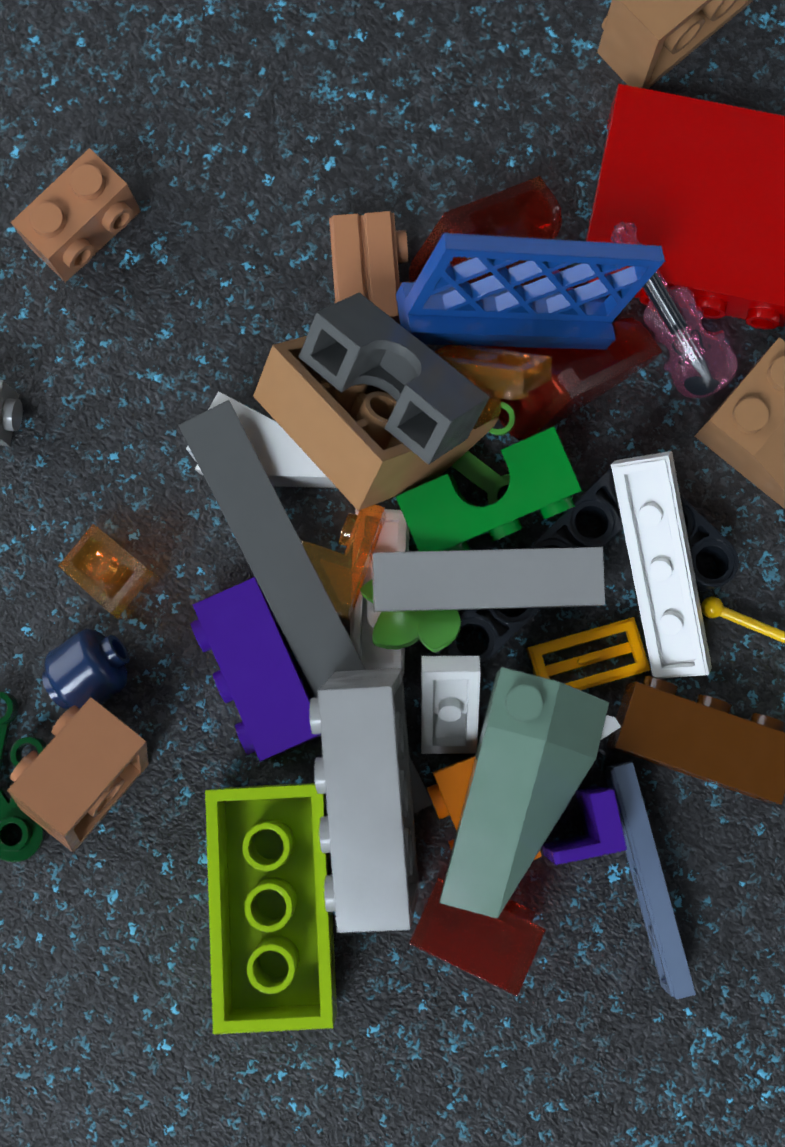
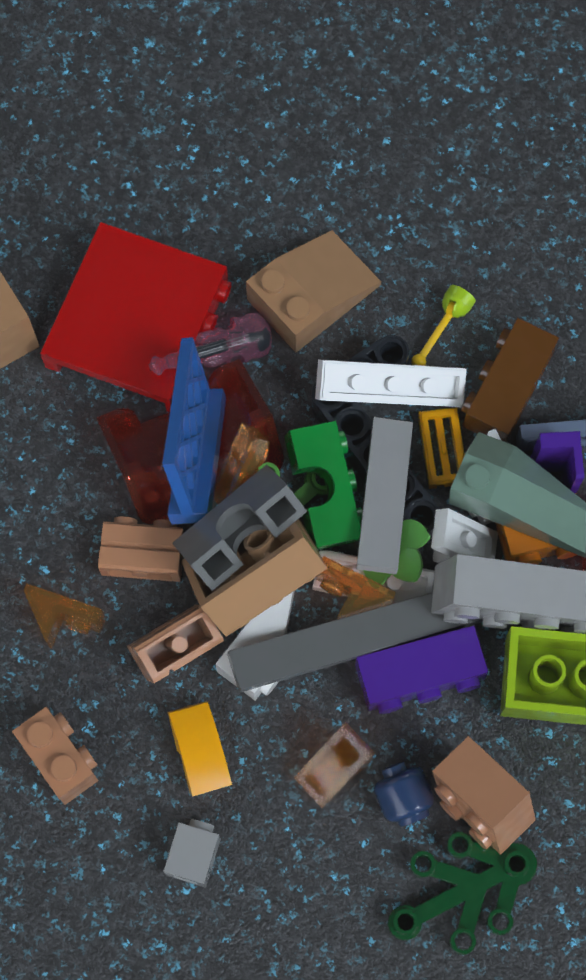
camera: 85 degrees left, 10 degrees down
(113, 395) = (199, 748): none -> light orange slope
(232, 328) = (175, 643): none -> nougat brick
(265, 178) = (52, 609): none -> clear orange slope

